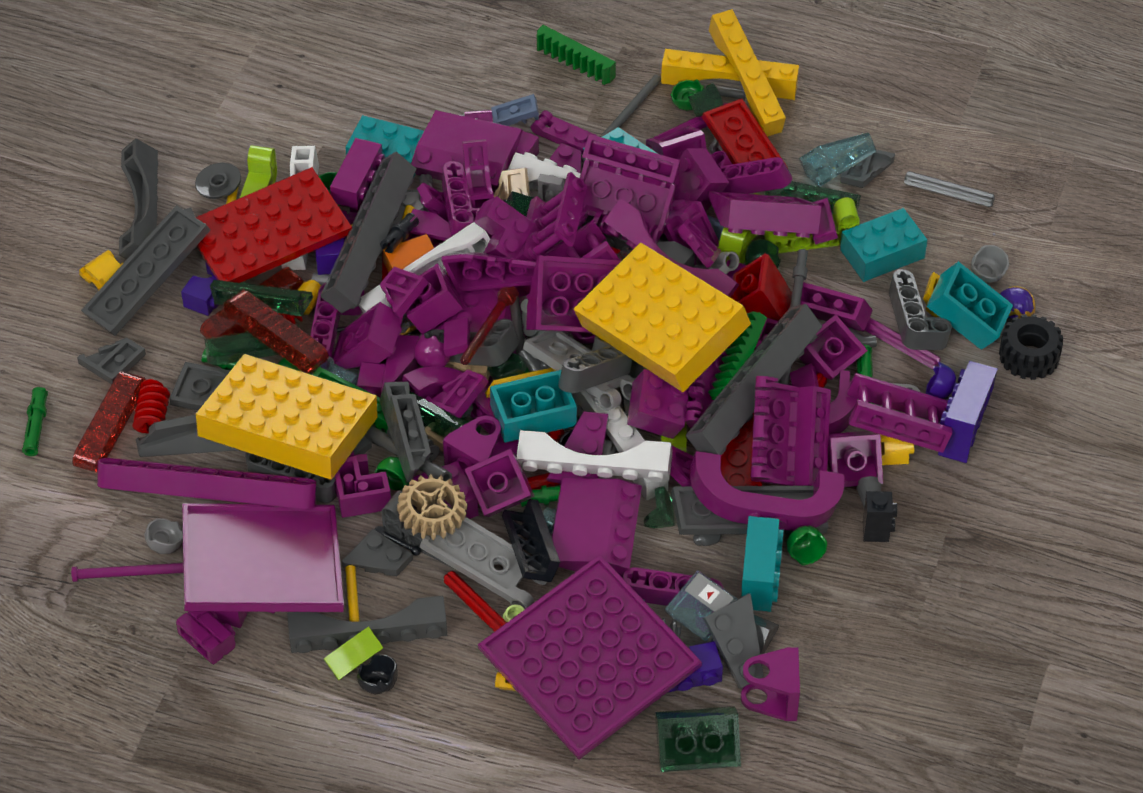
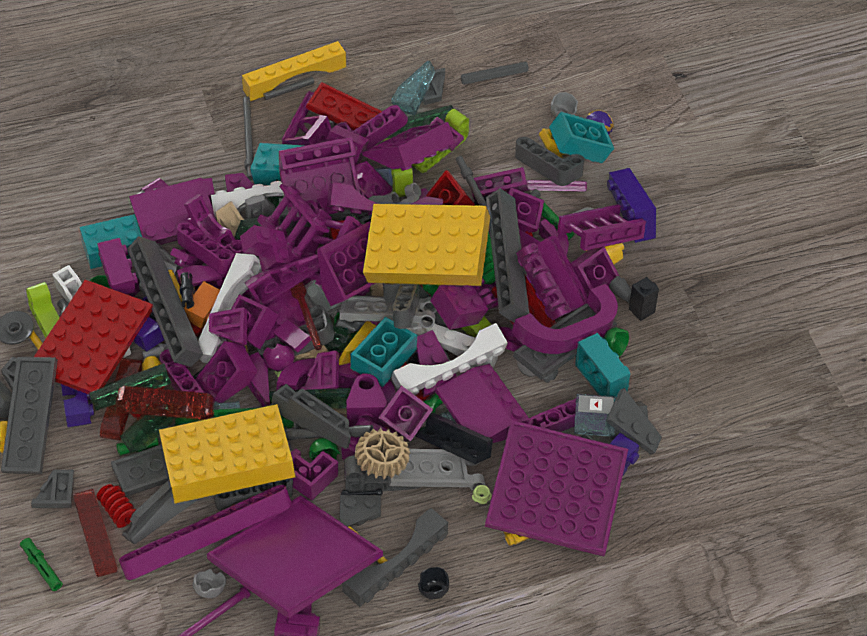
camera: 40 degrees left, 0 degrees up
(353, 653) = (407, 580): lime slope -> none
(371, 377) = (249, 397): magenta brick -> none
(473, 600) = (451, 501): red axle -> none
(516, 111) = (177, 169): sand blue plate -> none
(560, 131) = (217, 167): magenta plate -> none
(576, 54) = (179, 110): green gear -> none
(663, 514) = (513, 374): clear green tile -> none
(681, 92) = (279, 98): green hair -> none
(698, 739) = (660, 498): clear green slope -> none
(699, 243) = (390, 189): magenta wing -> none
(705, 100) = (299, 95): clear green tile -> none
(734, 44) = (282, 45): yellow arch -> none
(760, 247) = (424, 177): clear green hair -> none
(780, 685) = (684, 436): magenta hose -> none
(883, 244) = (490, 129): teal brick -> none
(941, 382) = (602, 195): dark purple hair -> none
(1029, 361) = (624, 141): black tyre -> none

